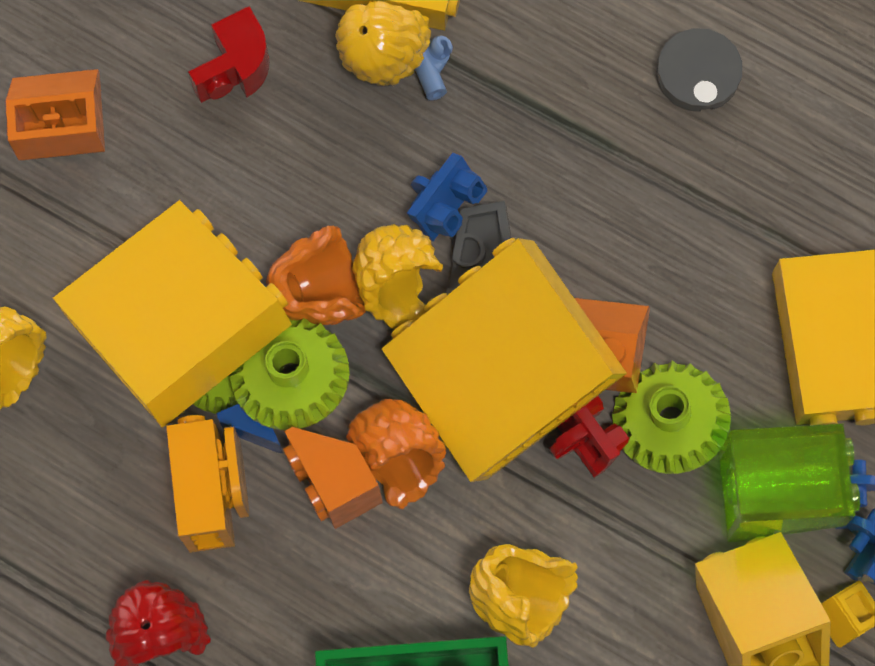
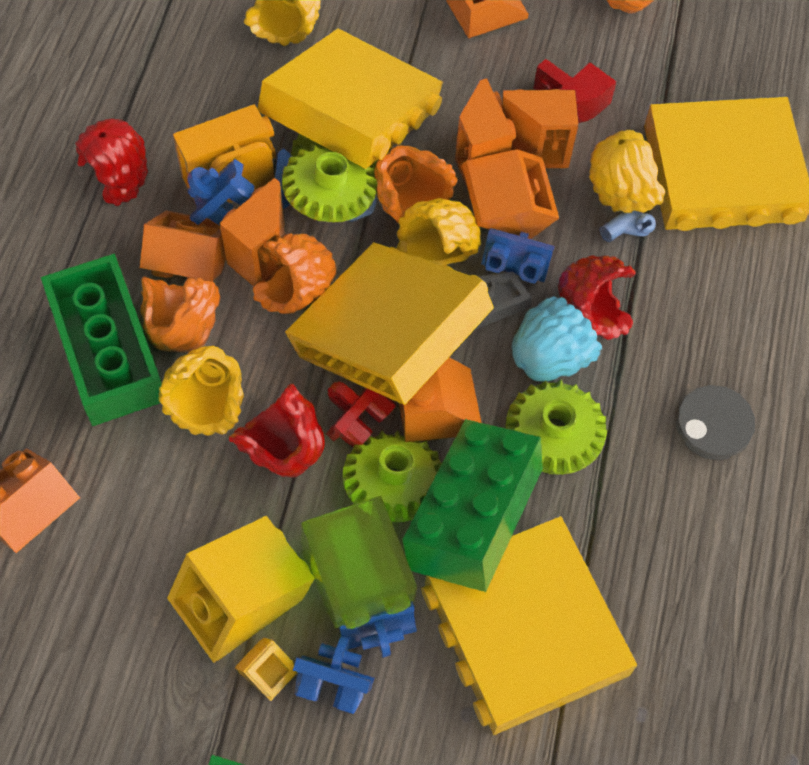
camera: 70 degrees right, 10 degrees down
(268, 504) = (214, 189): none -> blue hips
(275, 178) = (483, 126): none -> orange slope
(286, 110) = (543, 123): none -> orange slope
(305, 565) = (182, 248): none -> orange slope
(366, 175) = (511, 192): none -> orange slope
(407, 597) = (177, 315): none -> orange hair
(518, 134) = (589, 288): none -> red hair
(565, 197) = (554, 341): none -> medium azure hair
(600, 521) = (283, 436): none -> red hair
(651, 255) = (564, 447): none -> lime gear
(749, 338) = (473, 505): none -> green brick

